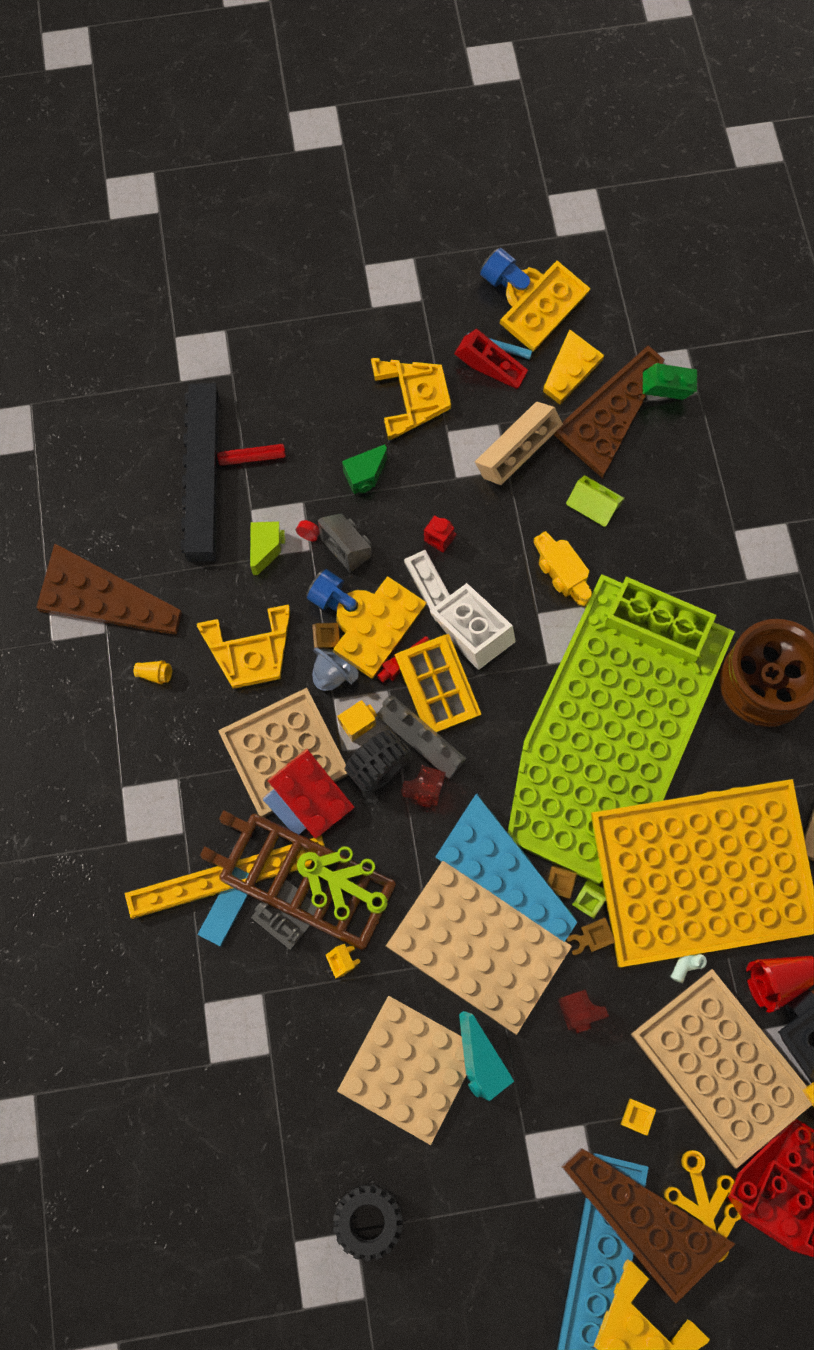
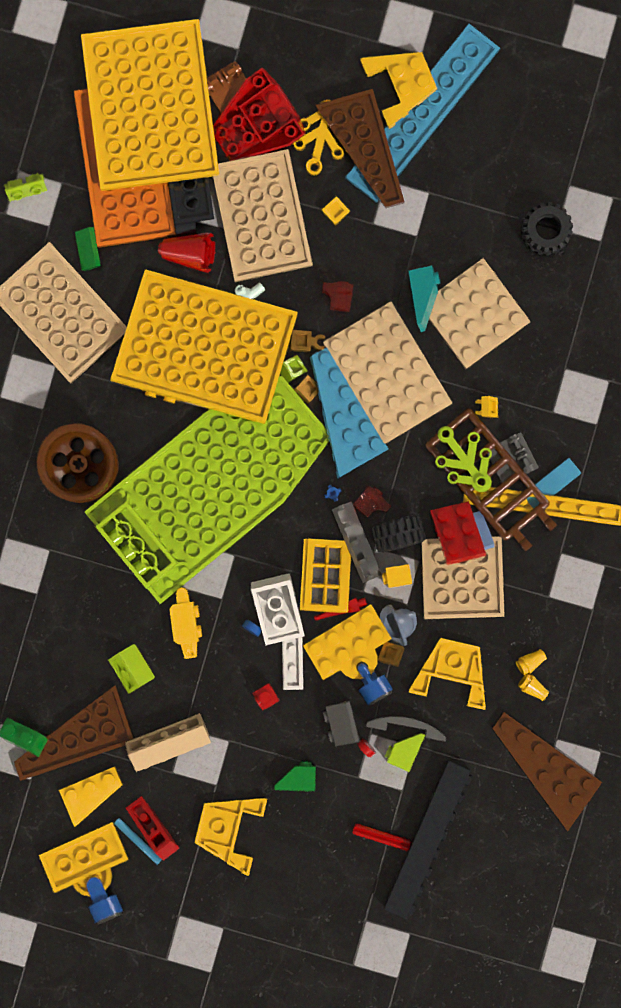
camera: 150 degrees left, 15 degrees up
(167, 697) = (529, 662): none -> yellow cone
(275, 575) = (381, 723): none -> dark grey slope
(474, 779) = (332, 493): none -> blue piece
(491, 594) = (252, 628): none -> blue tile

